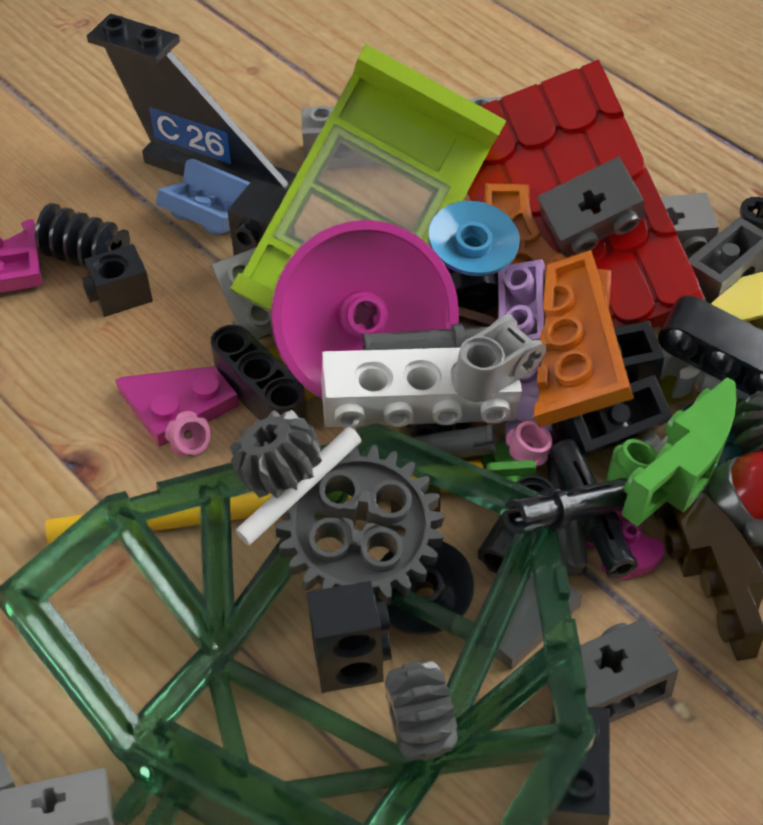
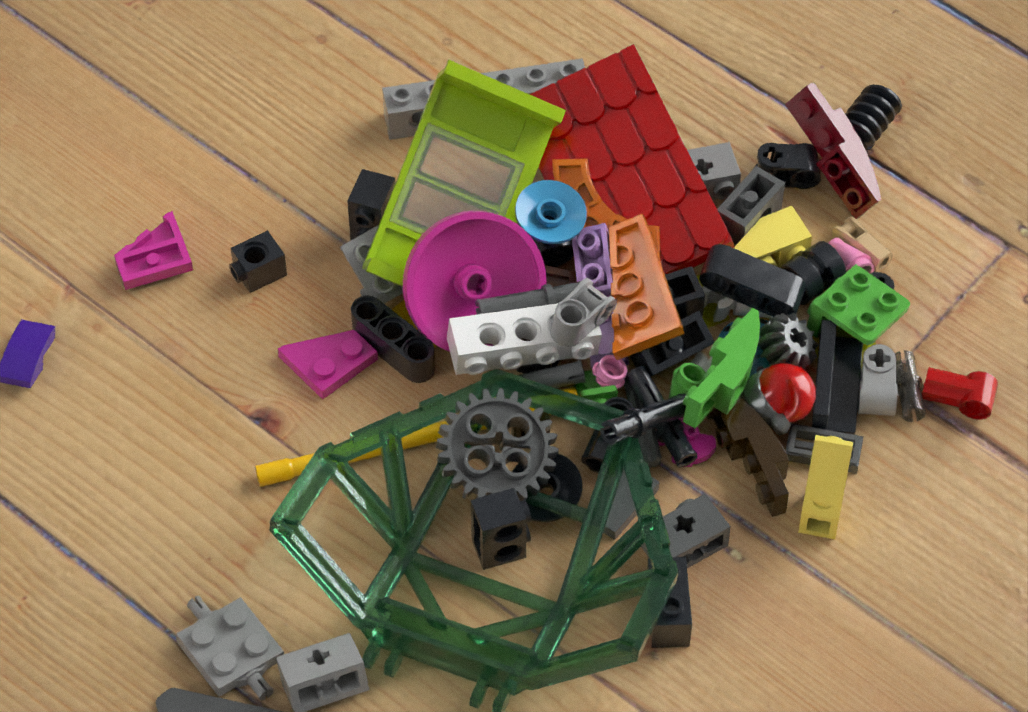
camera: 10 degrees left, 5 degrees up
(75, 235) = (214, 228): black piece -> none
(176, 108) = (284, 112): black piece -> none
(196, 443) = (355, 388): bright pink plate -> none
(203, 196) = (316, 178): medium blue bracket -> none
(275, 454) = (434, 403): dark grey gear -> none
(276, 507) = (451, 424): white bar -> none
(421, 710) = (560, 571): dark grey gear -> none
(604, 189) = (651, 162): dark grey brick -> none

